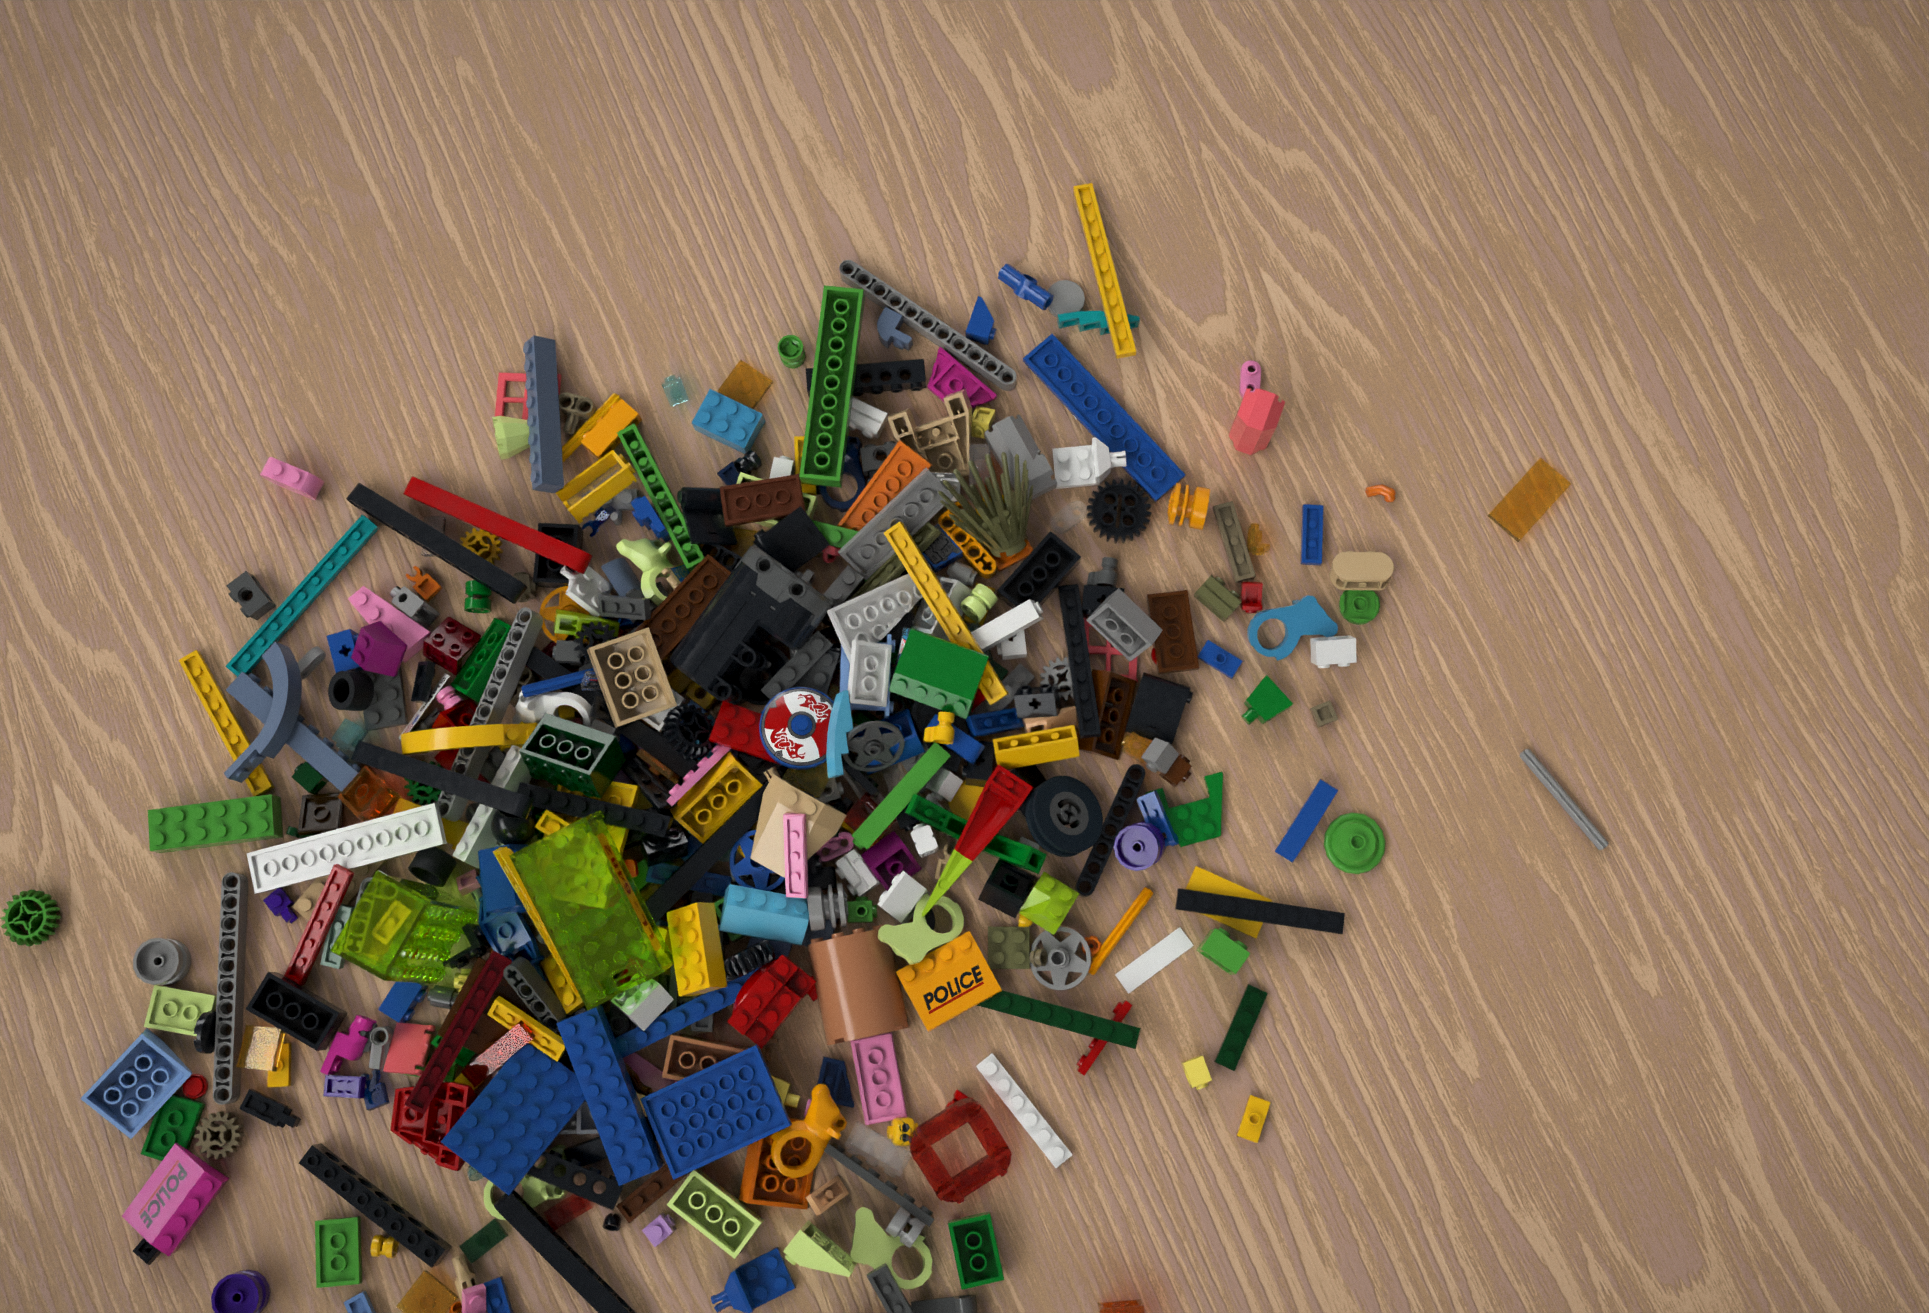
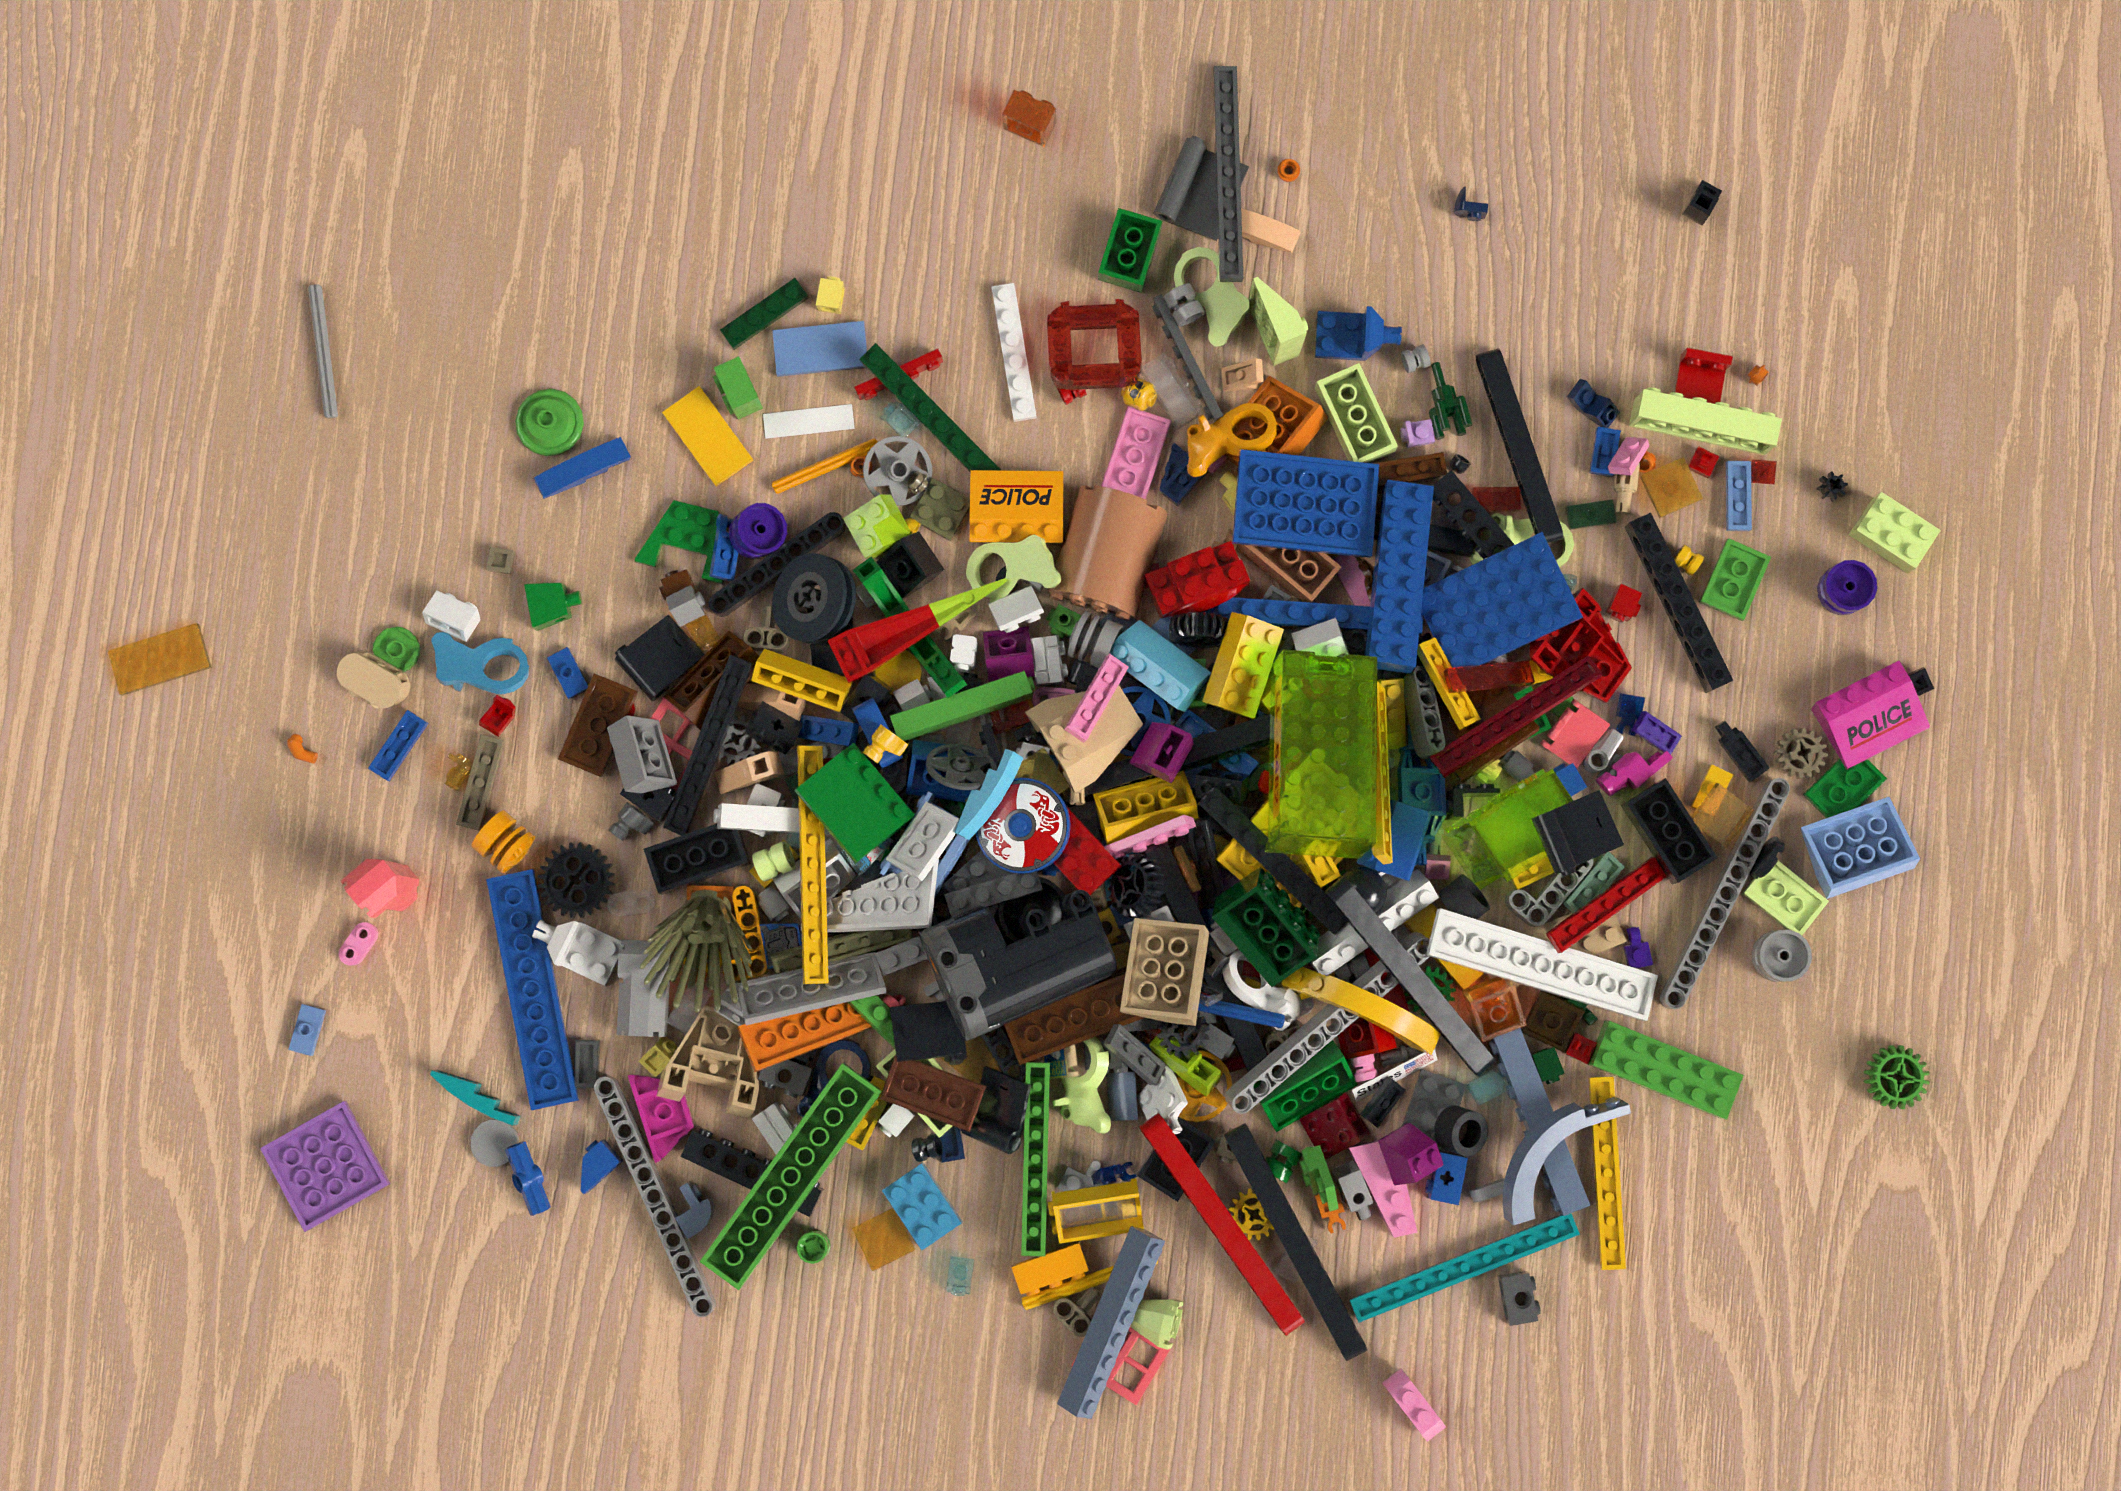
camera: 150 degrees left, 5 degrees up
(195, 1086) = (1803, 815): red piece -> none
(290, 805) = (1580, 1048): none -> red tile
(338, 938) = (1577, 832): none -> black door
(420, 1179) = (1624, 603): none -> red brick
(444, 599) = (1318, 1176): none -> bright green plate
(646, 1266) = (1447, 405): none -> dark green plant
(647, 516) = (1061, 1148): blue plate -> none
(692, 1292) = (1416, 358): none -> light grey wheel
(724, 845) = (1163, 750): none -> magenta slope
(1032, 389) = (586, 1063): none -> dark grey tile
(1035, 659) = (749, 772): none -> light nougat slope
(1083, 1001) = (899, 418): none -> clear light blue bracket
(1087, 773) = (767, 632): none -> dark tan beam
(1104, 271) = (434, 1147): yellow plate -> none
(1175, 218) = (325, 1166): none -> medium lavender plate
(1179, 1024) = (819, 348): none -> medium blue tile
(1218, 598) = (531, 733): olive brick -> none
(1248, 302) = (307, 1030): none -> medium blue plate
(1253, 1118) = (803, 226): yellow plate -> none
(1259, 911) = (680, 407): black plate -> none

